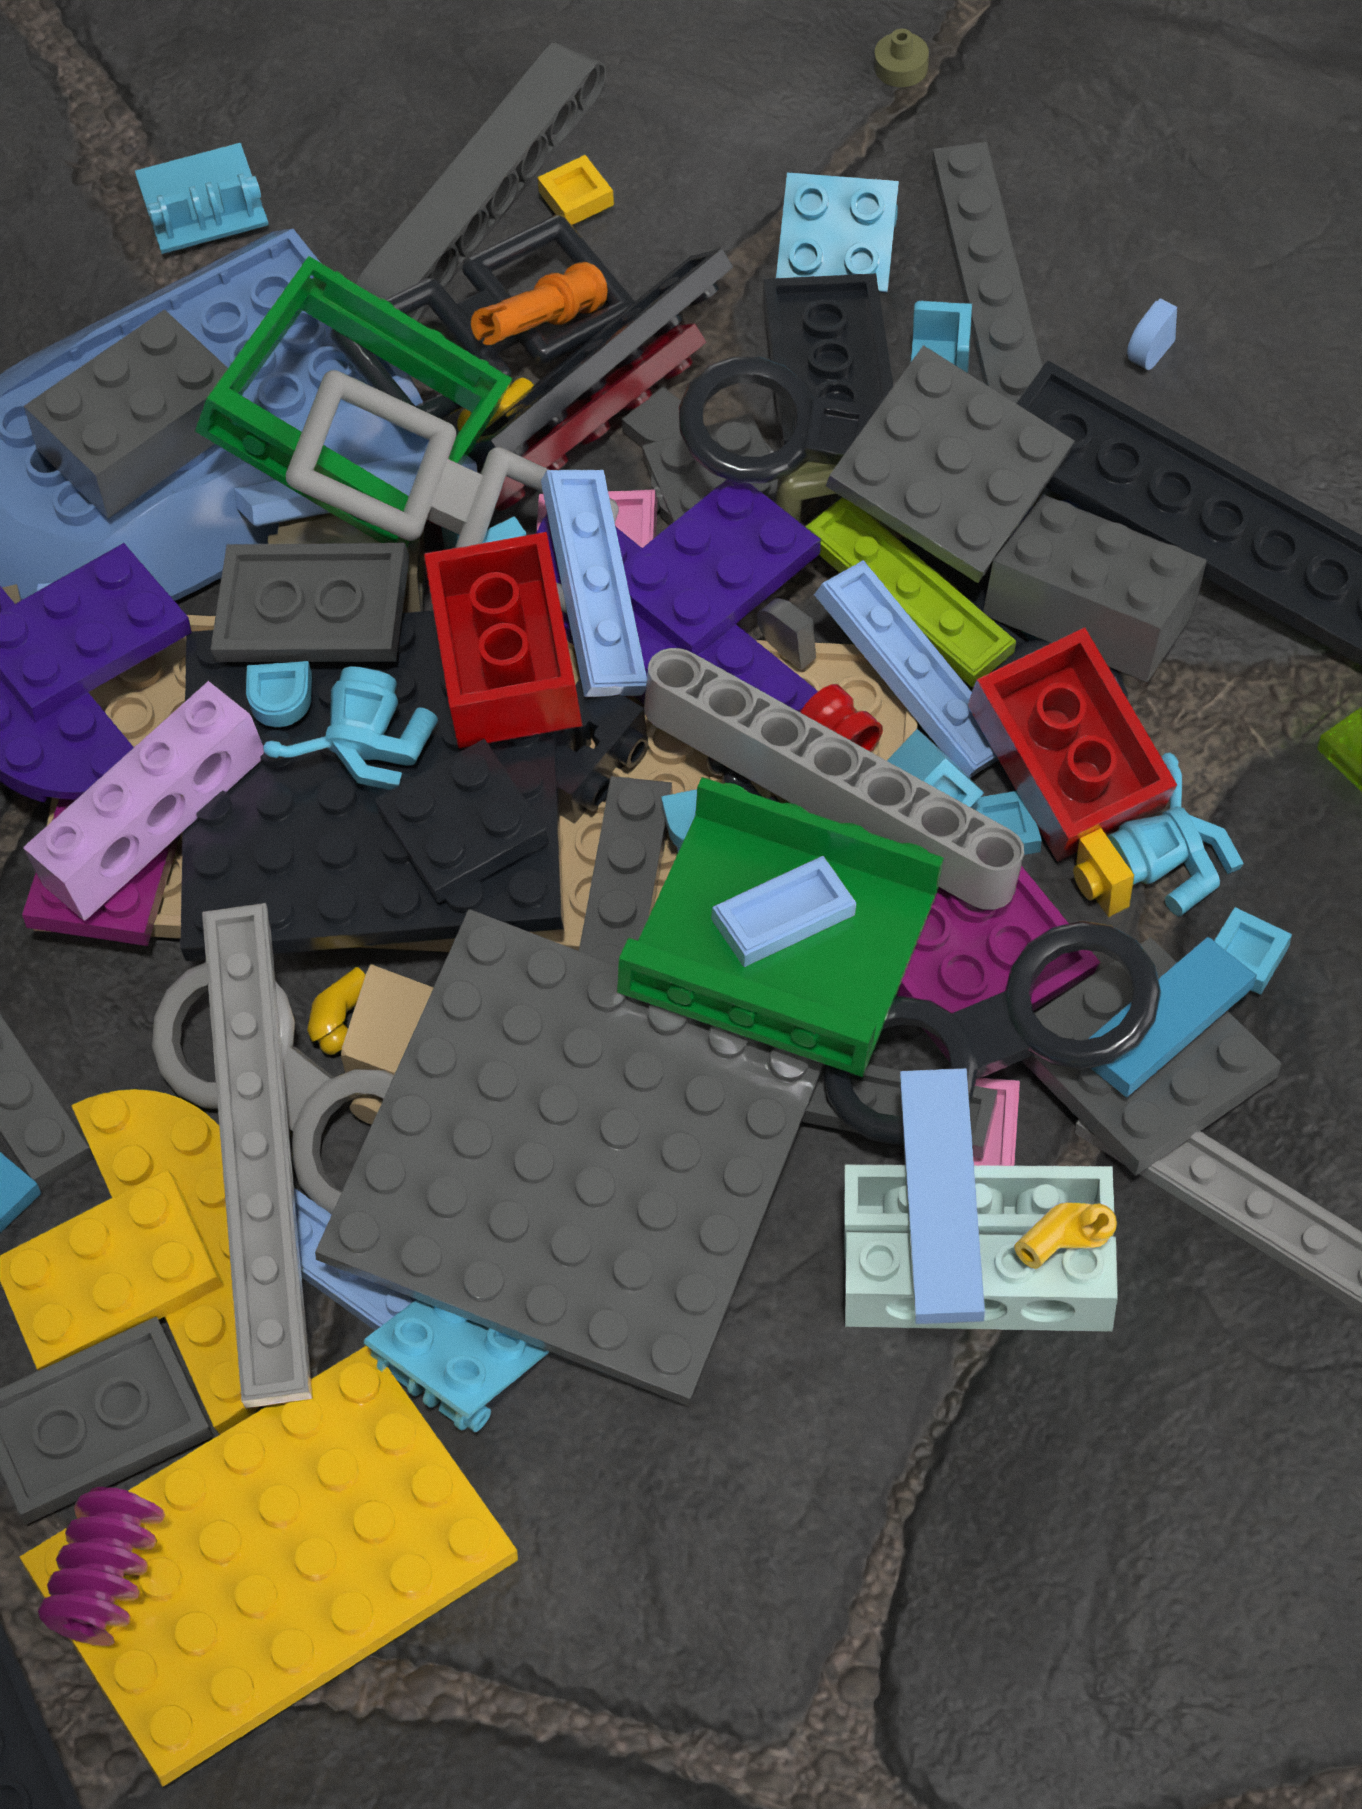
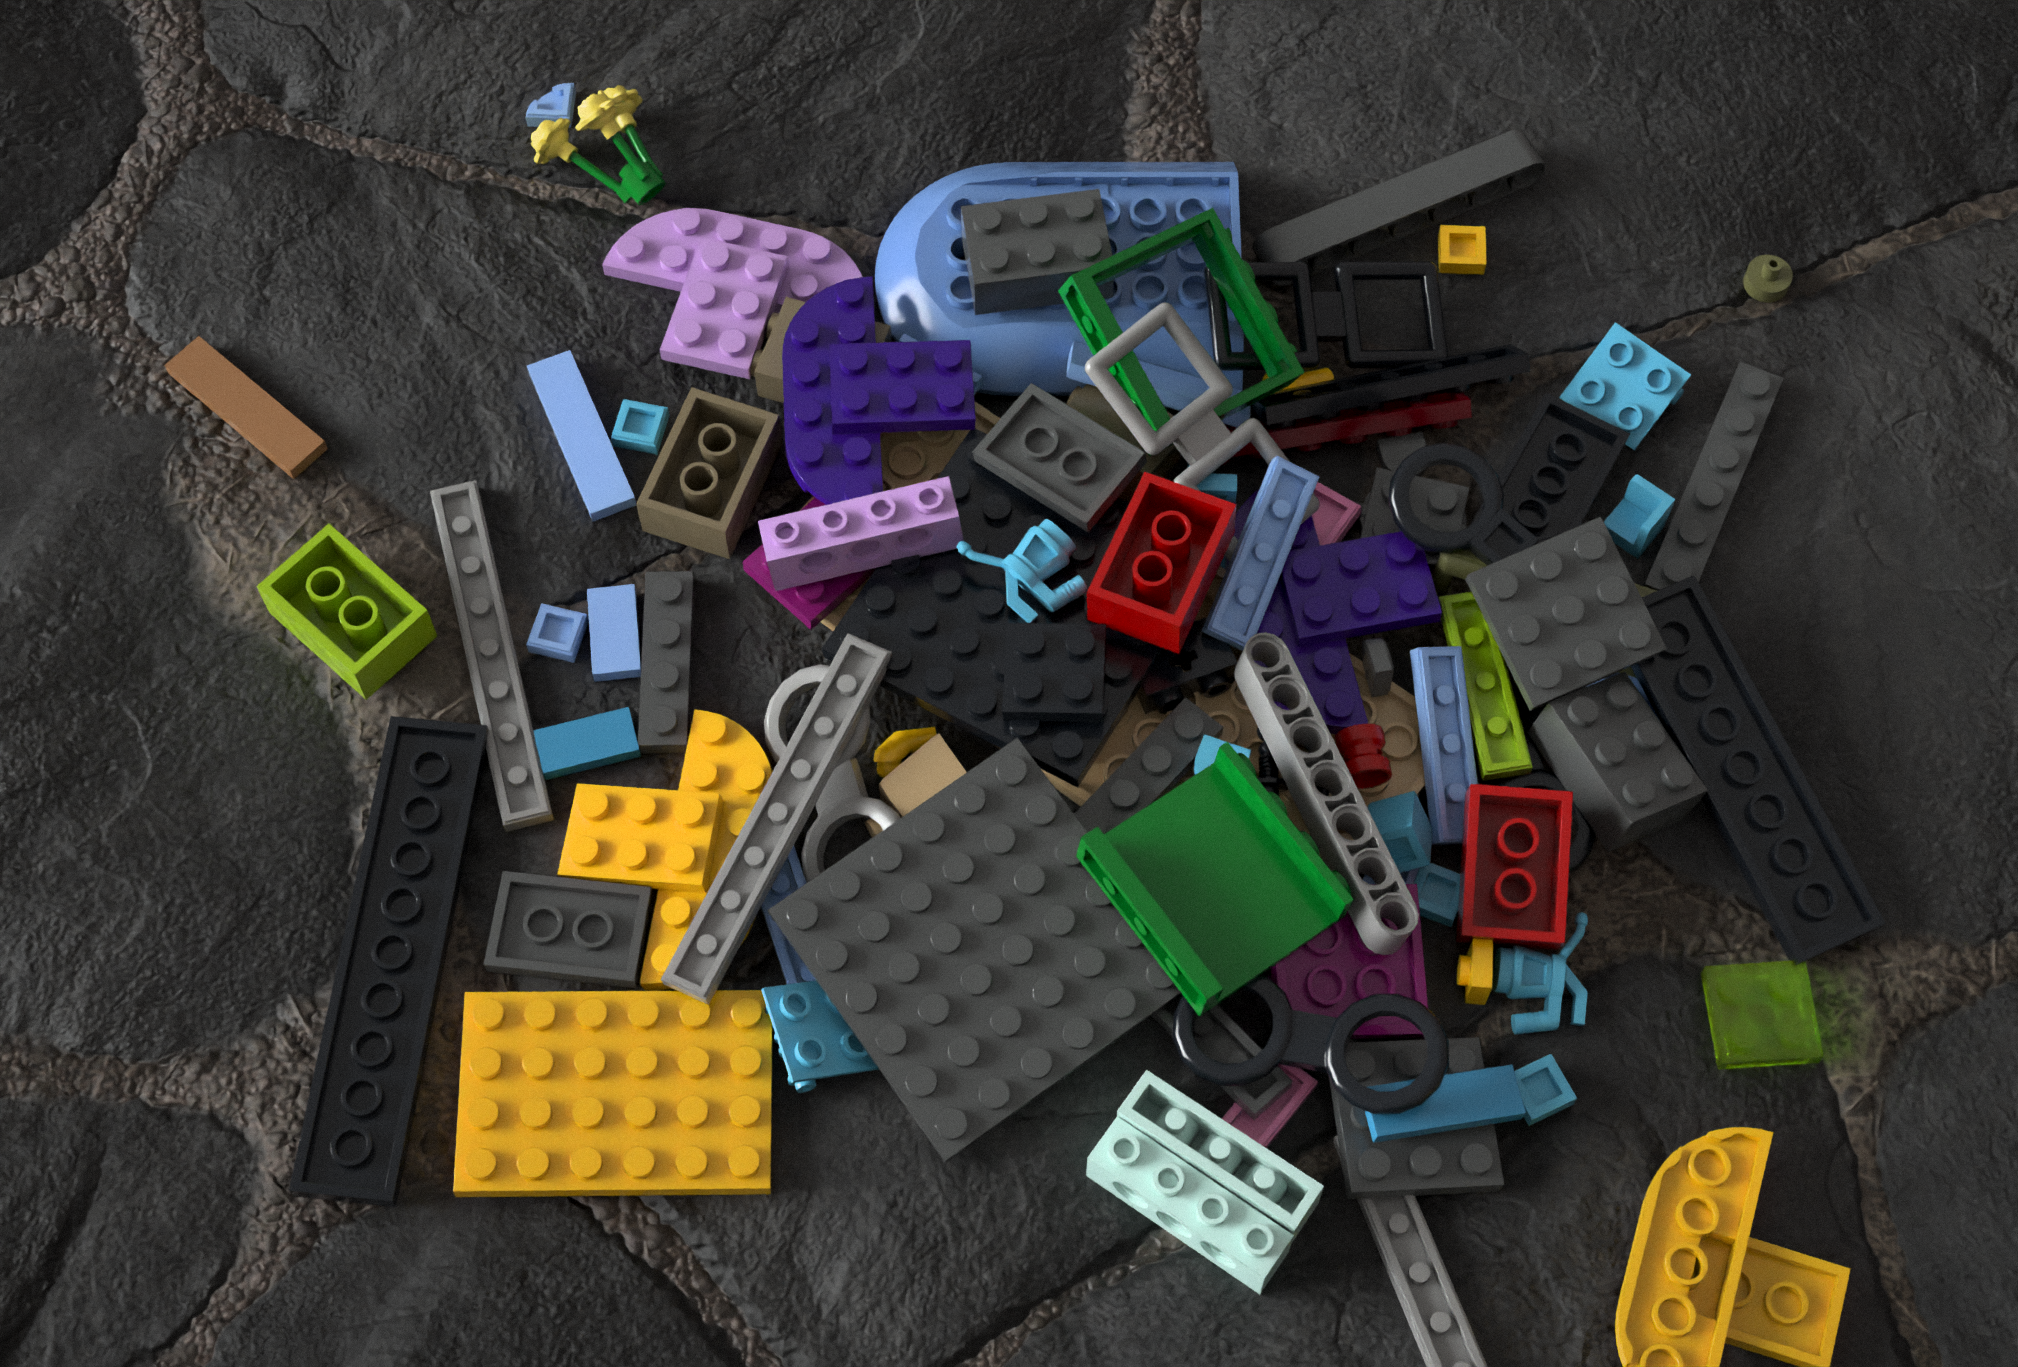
camera: 30 degrees right, 5 degrees up
(96, 1562) = (500, 1031): magenta piece -> none
(201, 198) = (1203, 109): medium azure hinge -> none
(279, 692) = (998, 508): medium azure tile -> none
(553, 300) = (1384, 325): orange pin -> none
(783, 911) = (1223, 868): light blue tile -> none
(941, 1197) = (1191, 1133): light blue tile -> none
(1066, 1227) = (1259, 1209): yellow arm -> none
(1153, 335) = (1798, 596): light blue tile -> none

